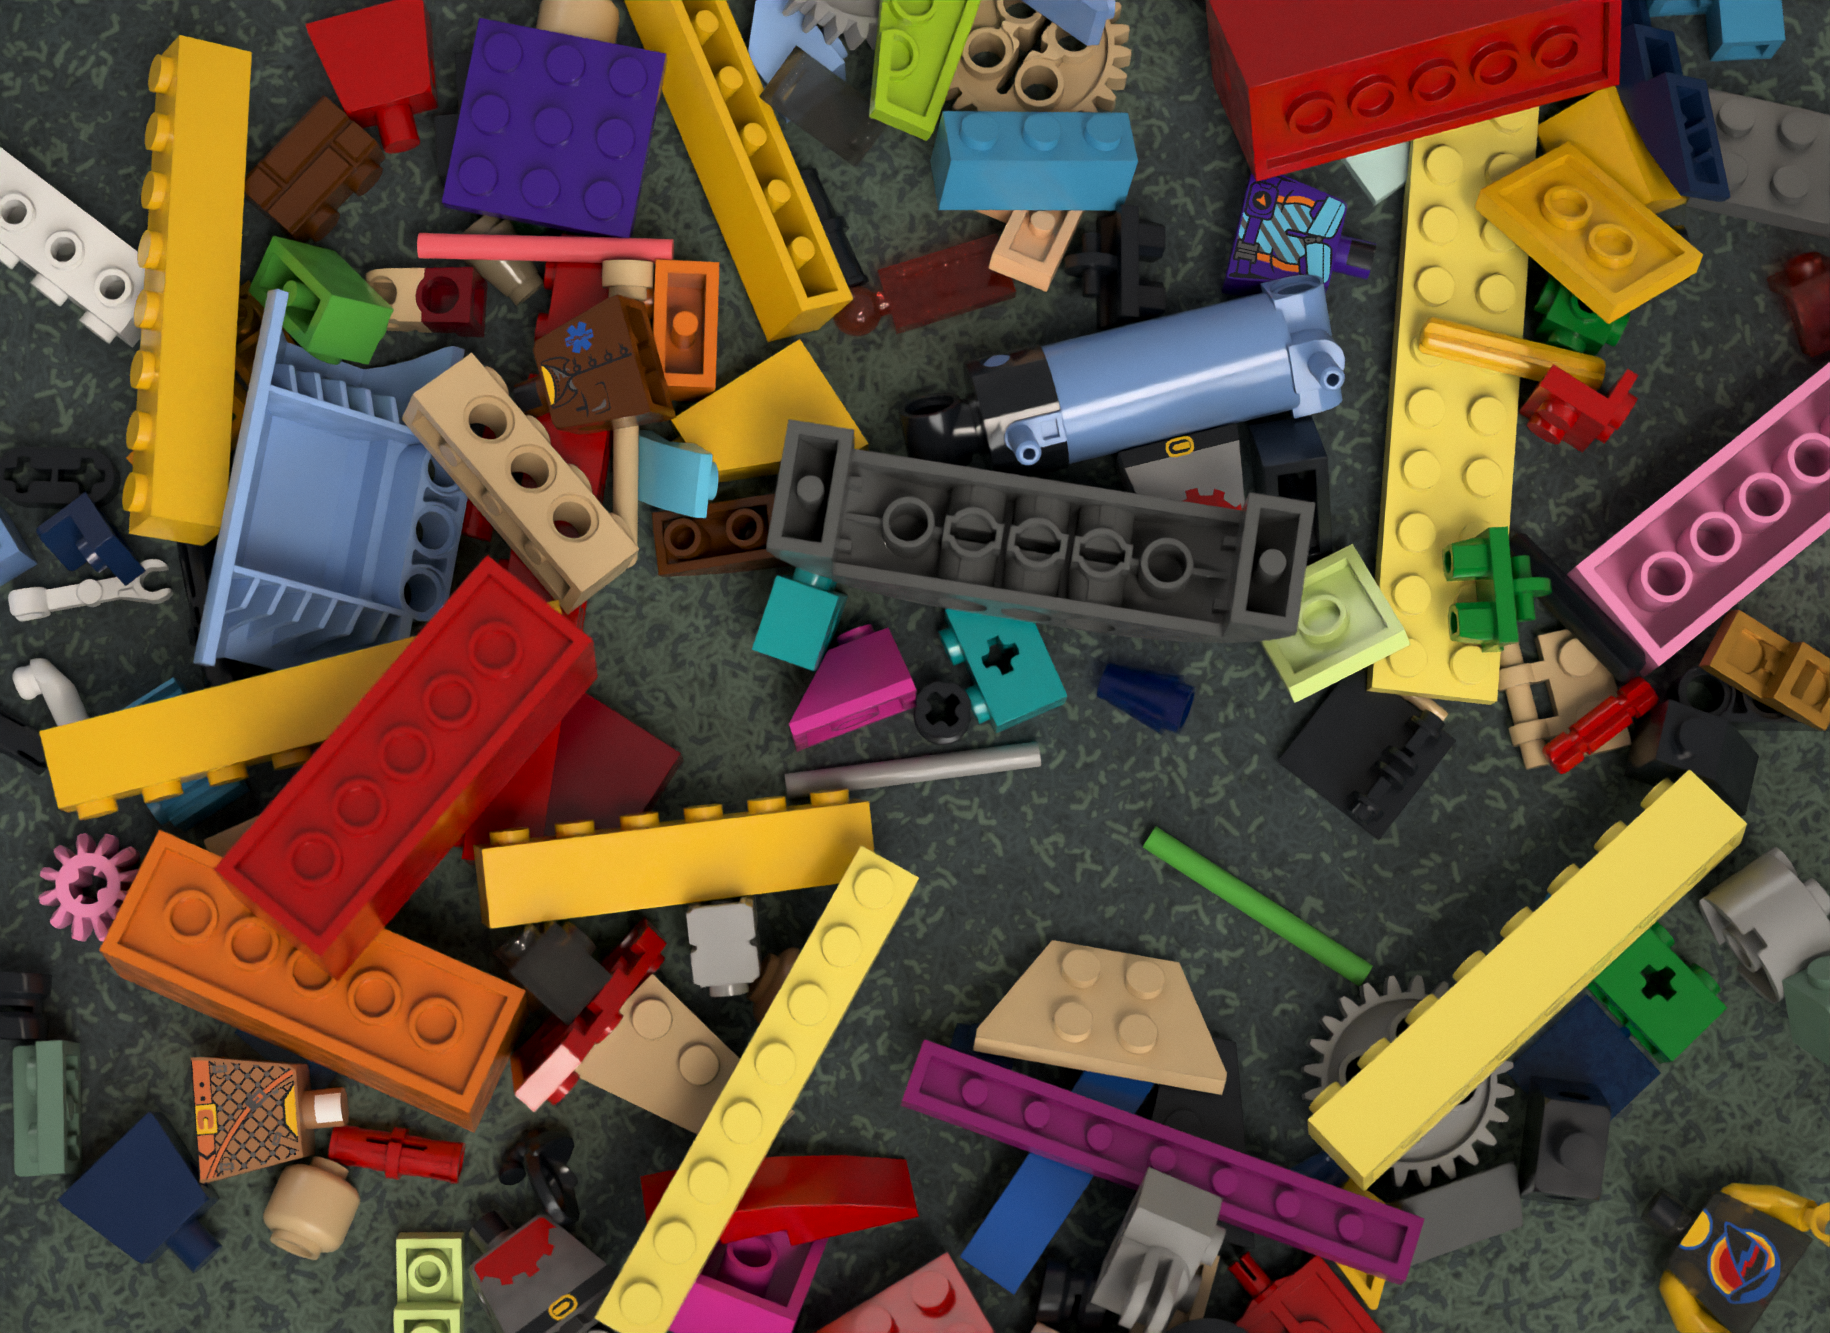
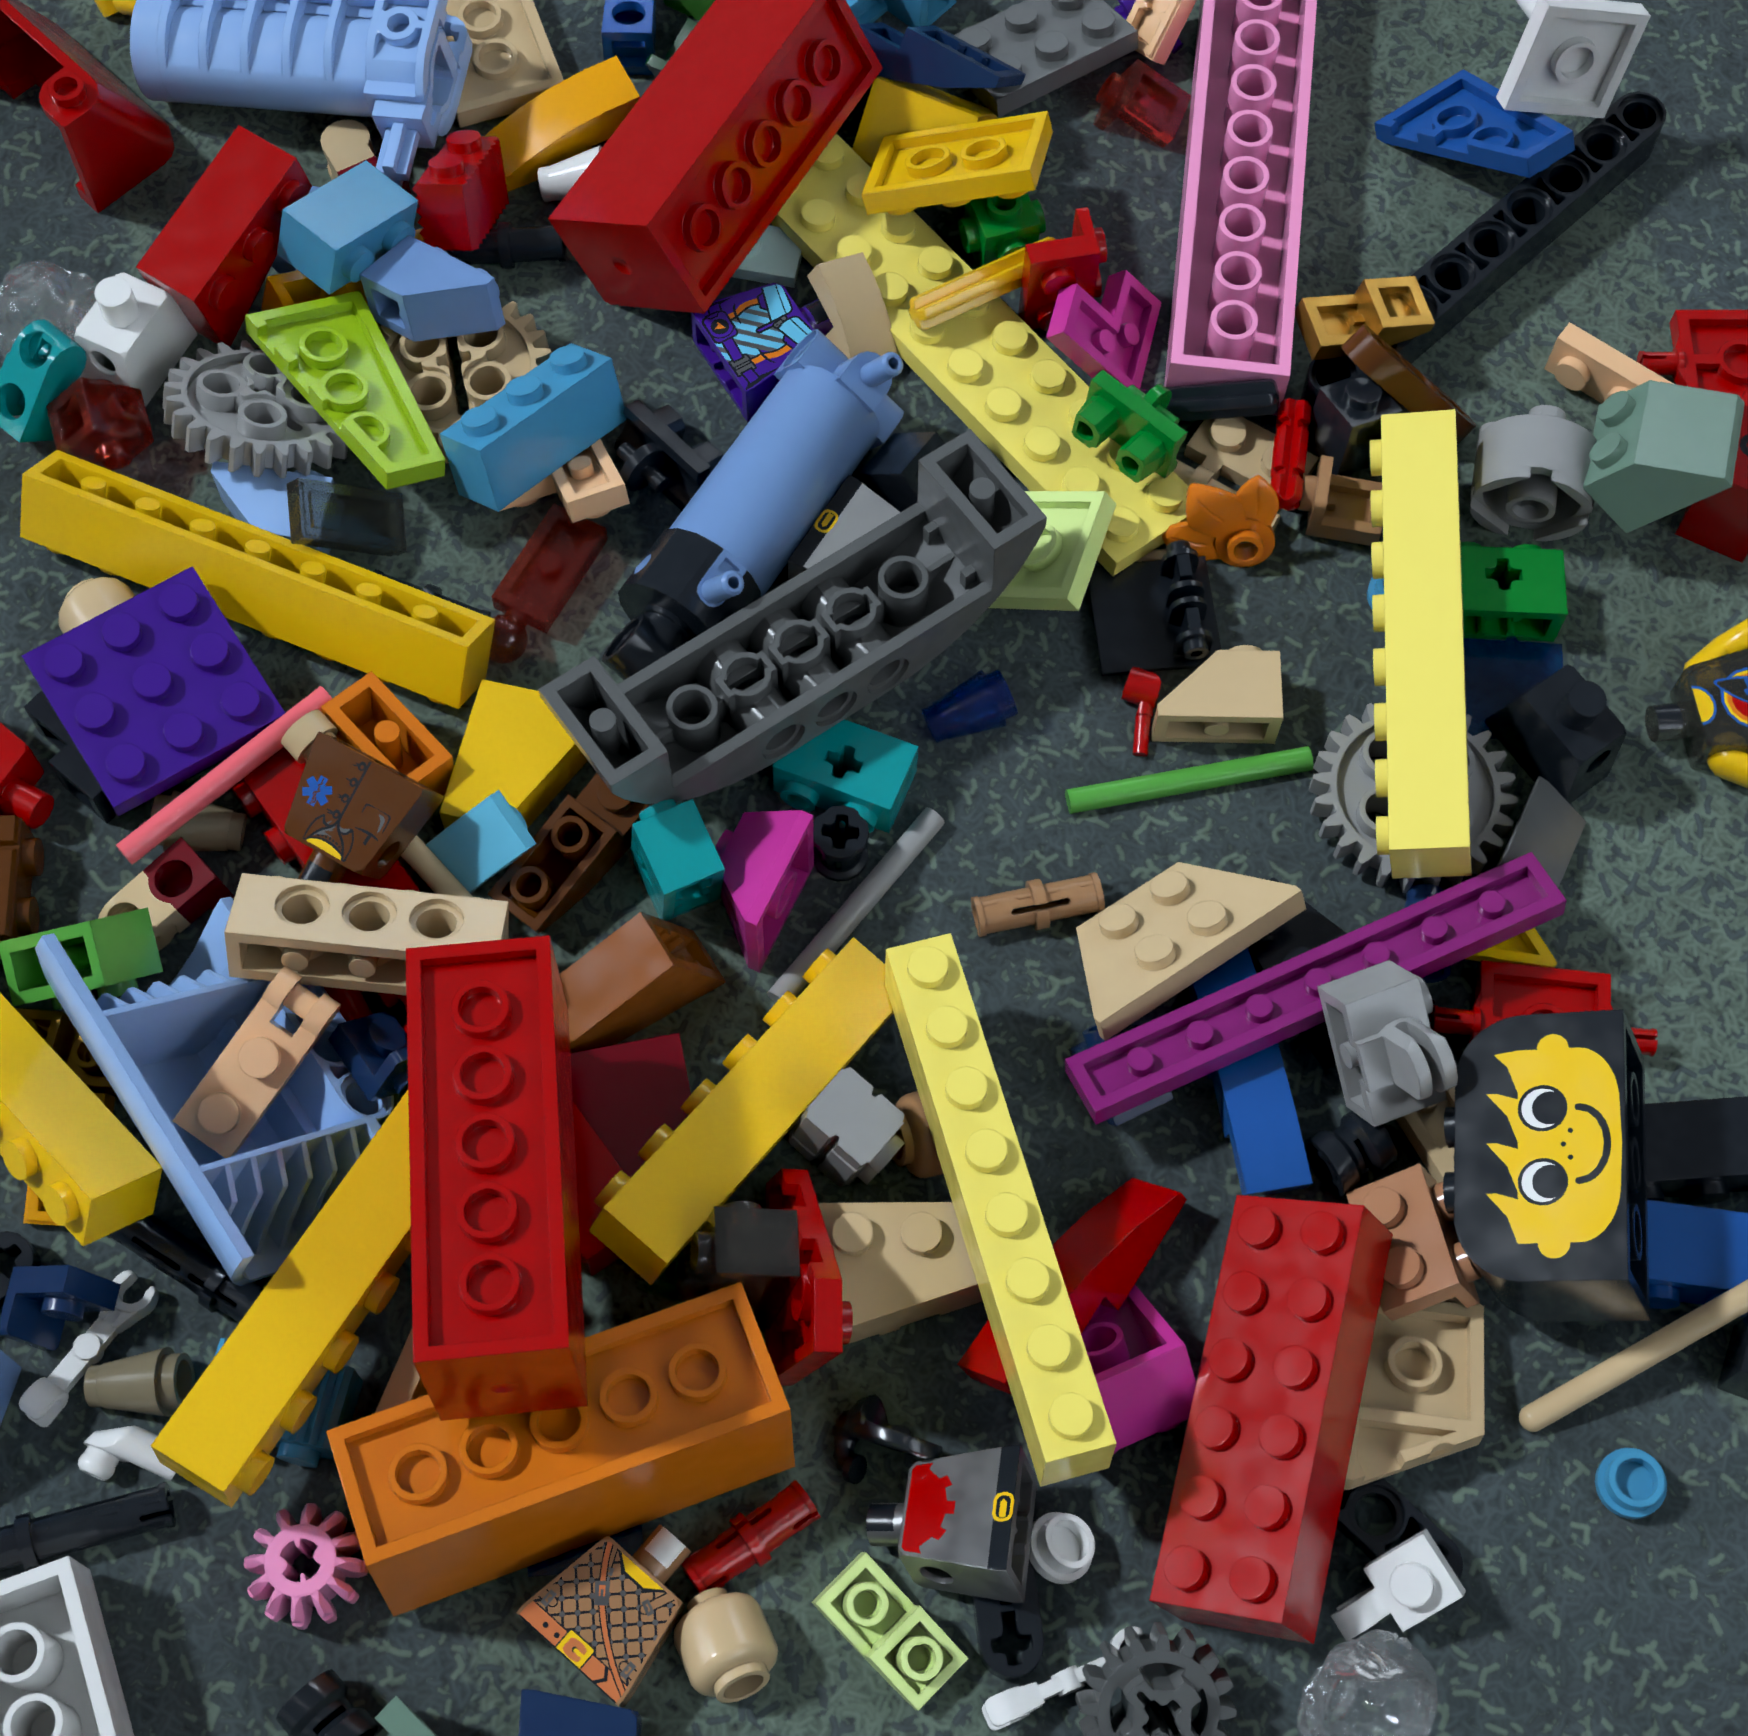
camera: 45 degrees left, 15 degrees down
(102, 654) = (141, 1383): none -> dark tan cone
(361, 504) = (255, 1065): none -> light nougat plate
(452, 559) = (374, 1054): none -> dark blue bracket
(683, 678) = (634, 981): none -> dark orange slope
(1042, 895) = (996, 911): none -> medium nougat pin
(1294, 805) = (1143, 690): none -> red hand
(1345, 873) = (1225, 700): none -> tan slope
(1381, 289) = (853, 306): none -> tan slope
(1495, 748) = (1223, 520): none -> orange plate
(1566, 497) = (1109, 334): none -> dark pink plate
(1600, 796) = (1339, 506): none -> medium nougat bracket
(1751, 759) = (1401, 378): none -> reddish brown beam

